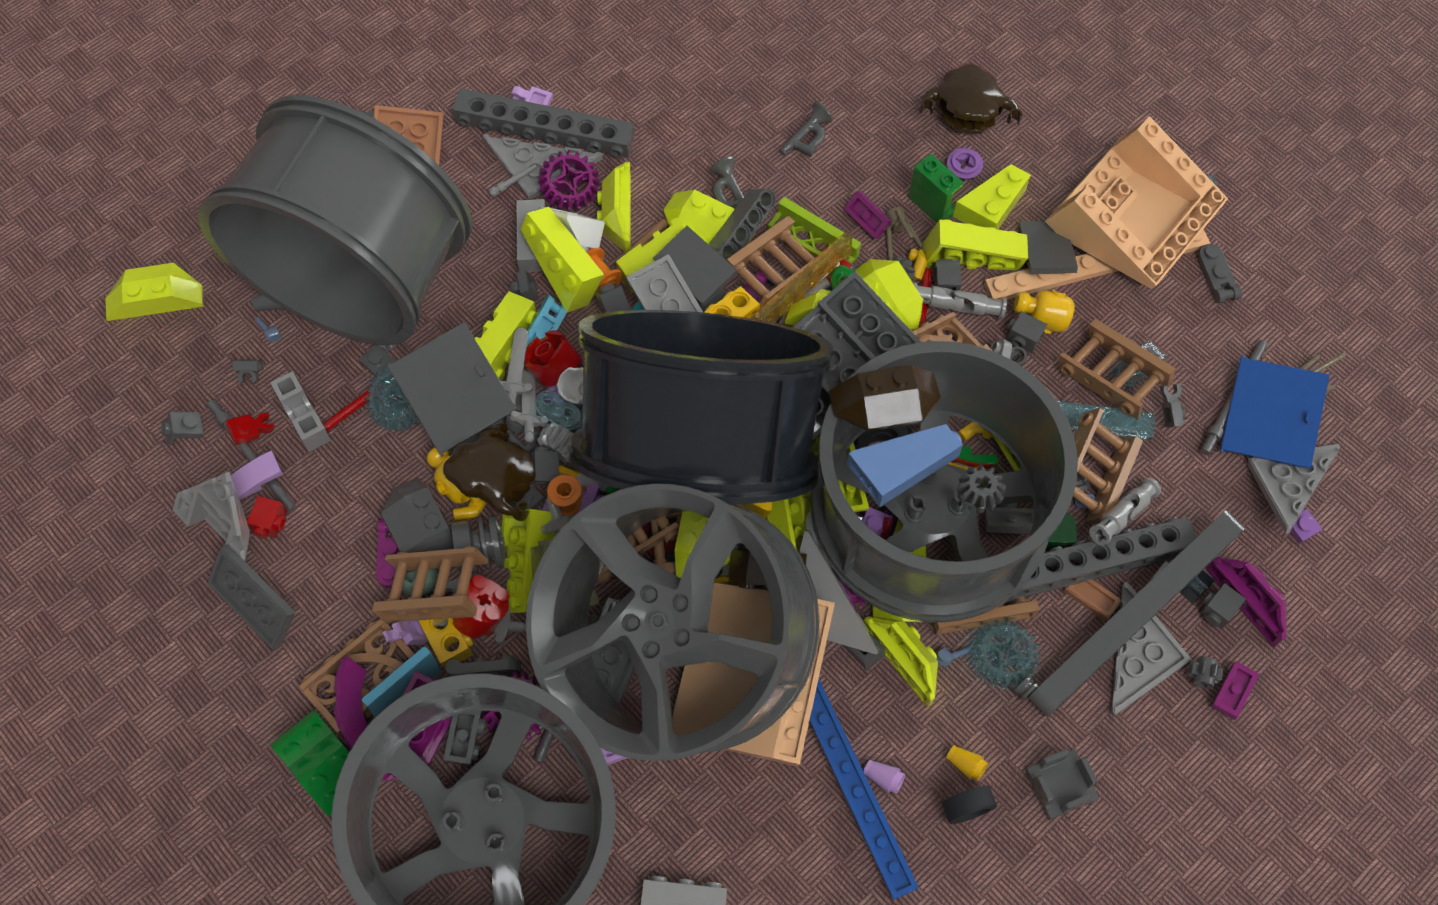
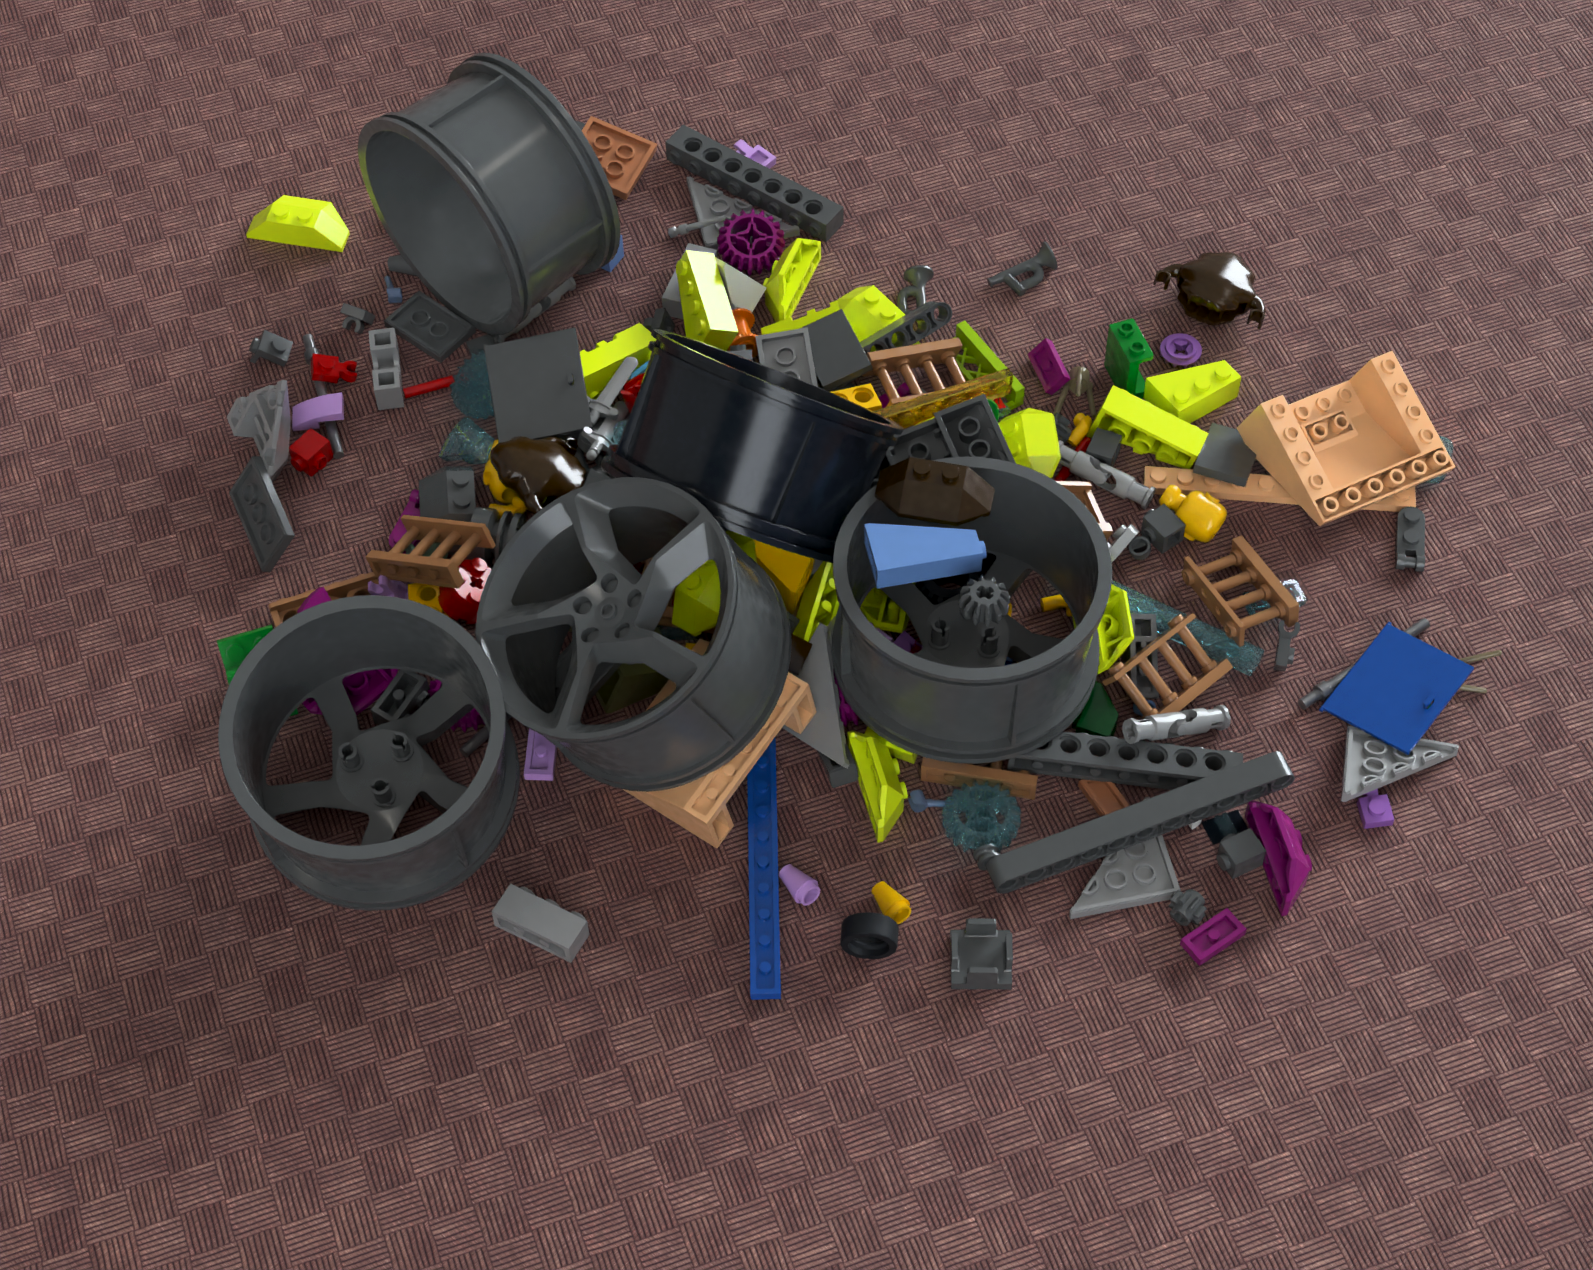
camera: 25 degrees right, 10 degrees down
(318, 354) = (430, 326): none -> dark grey tile
(407, 458) = (467, 443): none -> clear light blue slope
(969, 460) = (1032, 621): green slope -> none

